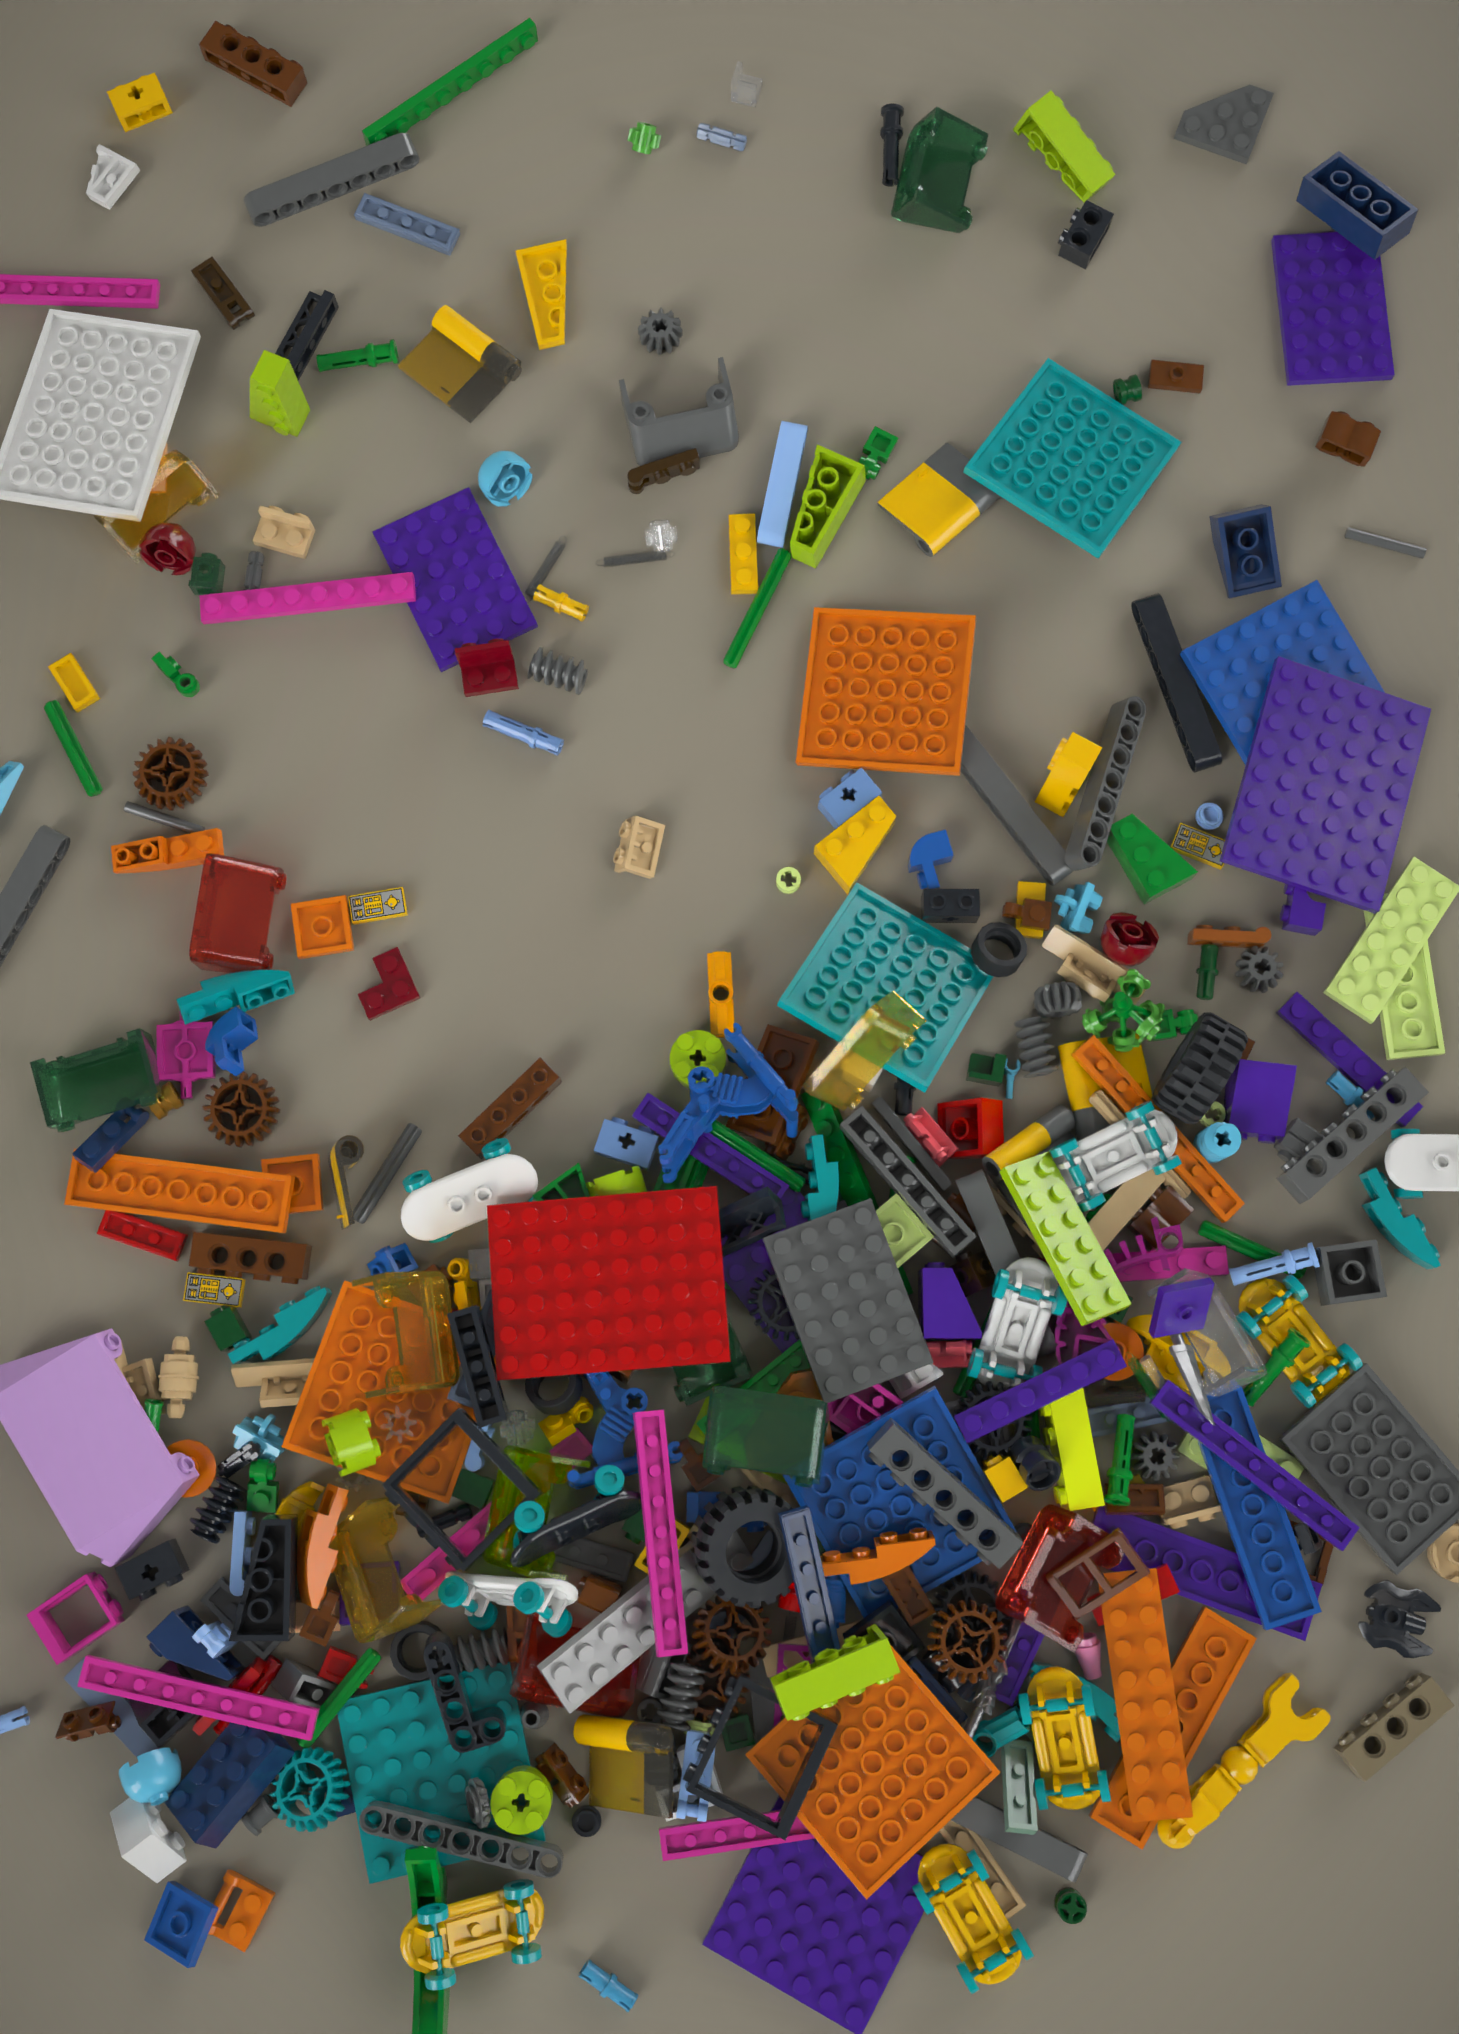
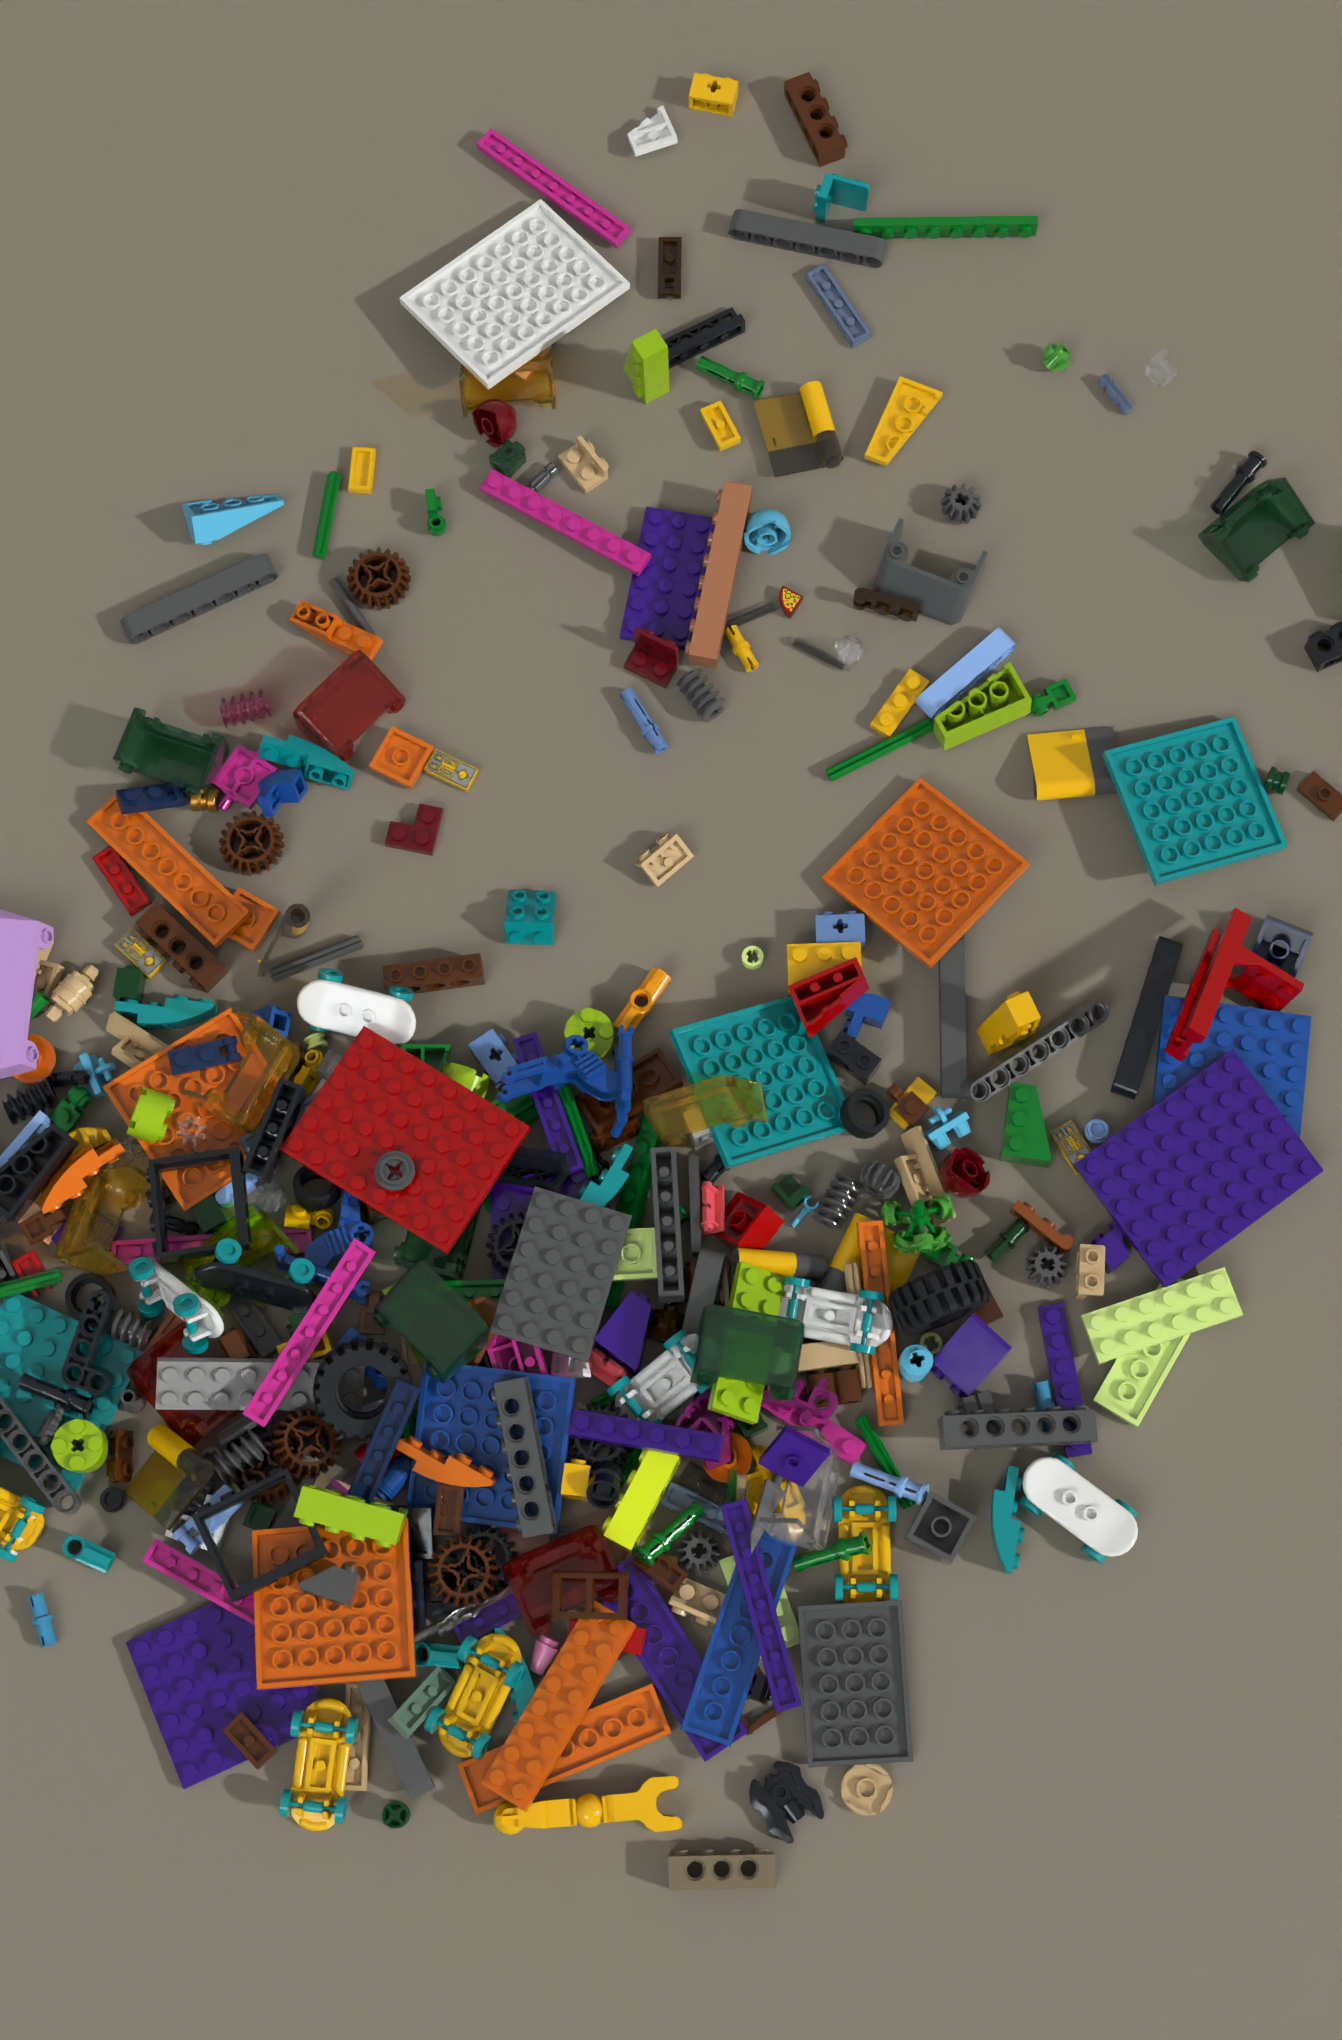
camera: 40 degrees right, 5 degrees down
(136, 986) = (244, 708): none -> clear pink piece
(332, 114) = (841, 192): none -> teal bracket
(355, 1346) = (203, 1056): none -> dark blue plate
(383, 409) = (720, 425): none -> yellow plate
(447, 1251) = (316, 1041): none -> yellowish green bush
(474, 1764) = (68, 1399): none -> black pin
(492, 546) = (720, 574): none -> nougat brick
(558, 989) = (530, 917): none -> teal bracket
(571, 528) = (789, 601): none -> tile
(608, 1889) = (90, 1554): none -> teal piece
(615, 1311) = (394, 1159): none -> dark grey gear
(864, 1748) = (334, 1585): none -> dark grey slope
(888, 864) = (827, 994): none -> red wedge
(890, 1946) = (249, 1740): none -> reddish brown plate
(1076, 1246) = (747, 1349): none -> clear green windscreen
(1220, 606) = (1259, 982): none -> red piece
(1301, 946) = (1089, 1271): none -> tan bracket

